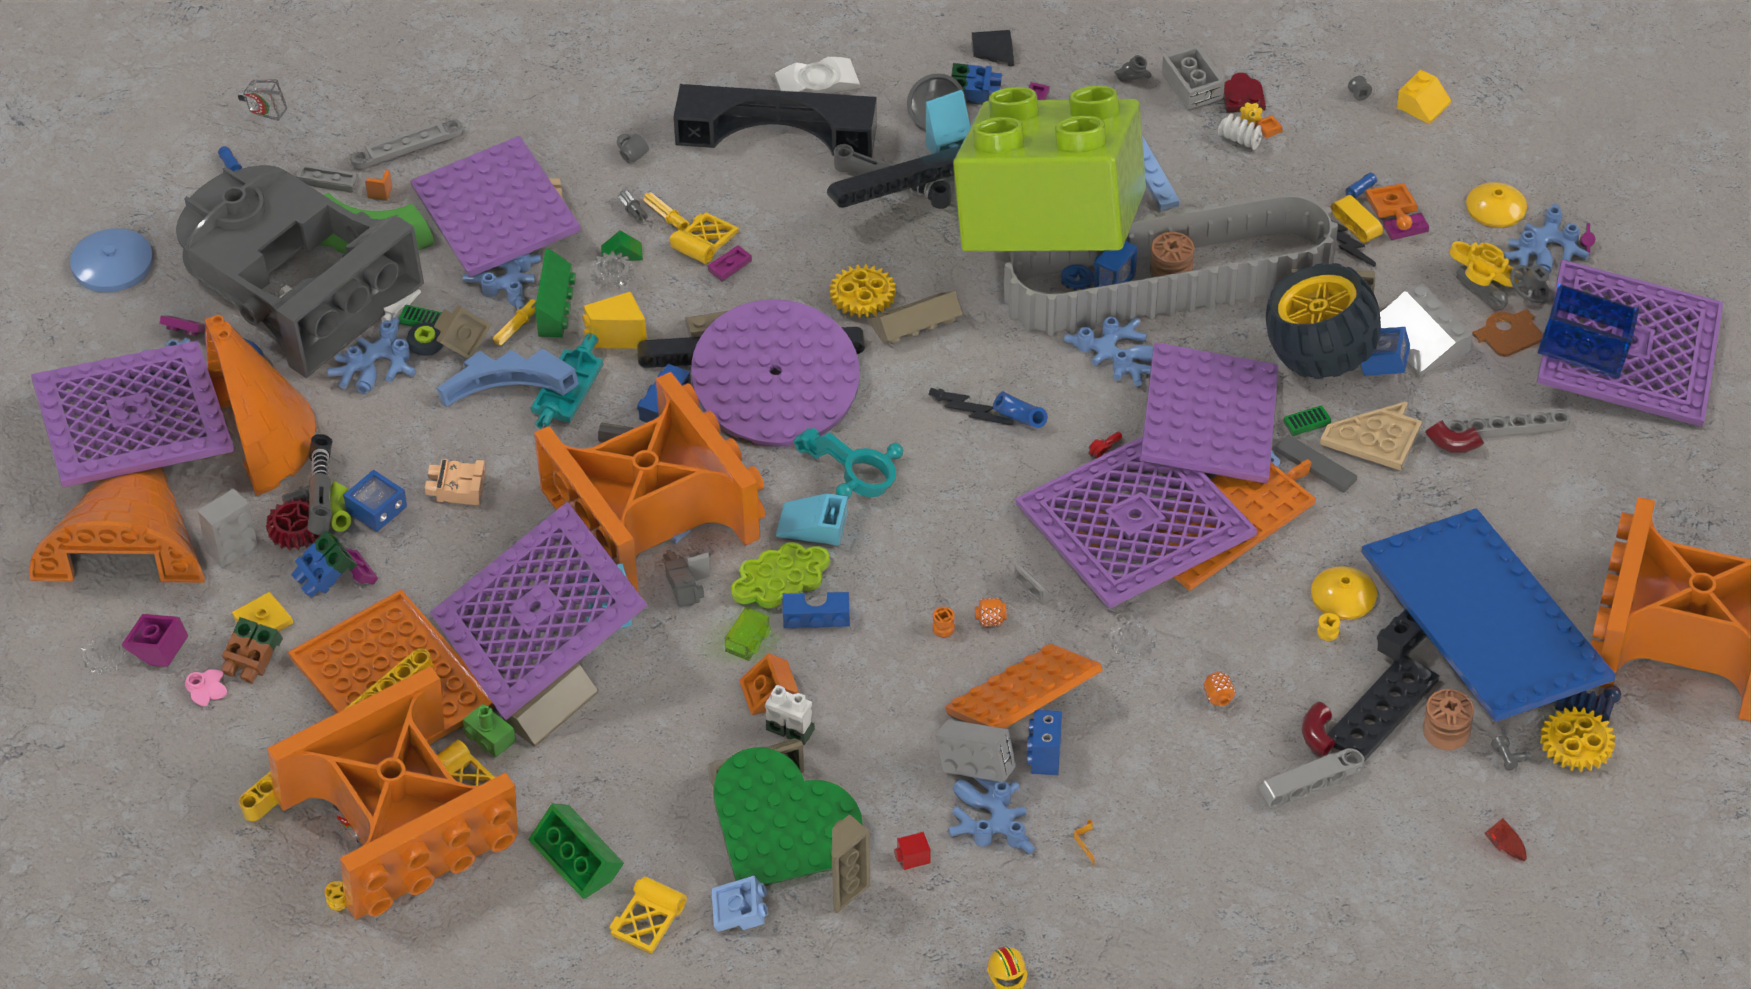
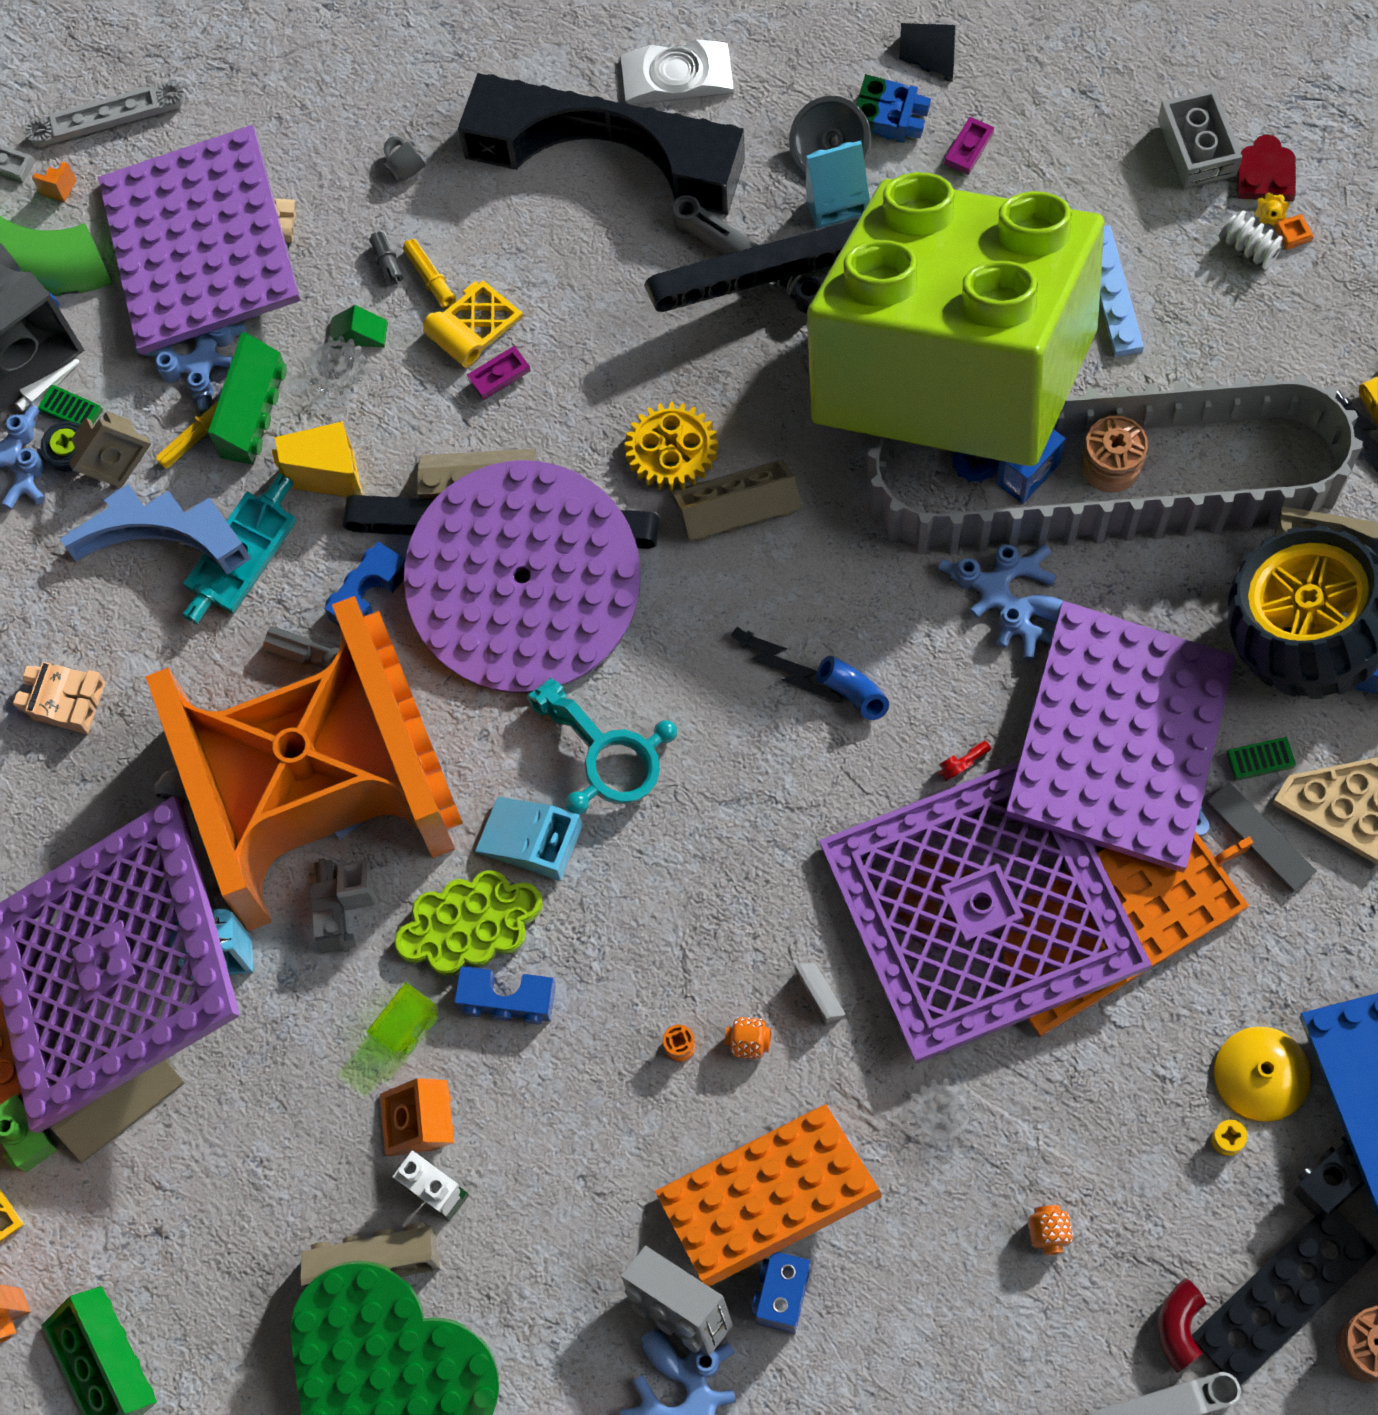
camera: 15 degrees right, 20 degrees up
(1133, 69) = (1118, 112): dark grey animal -> none

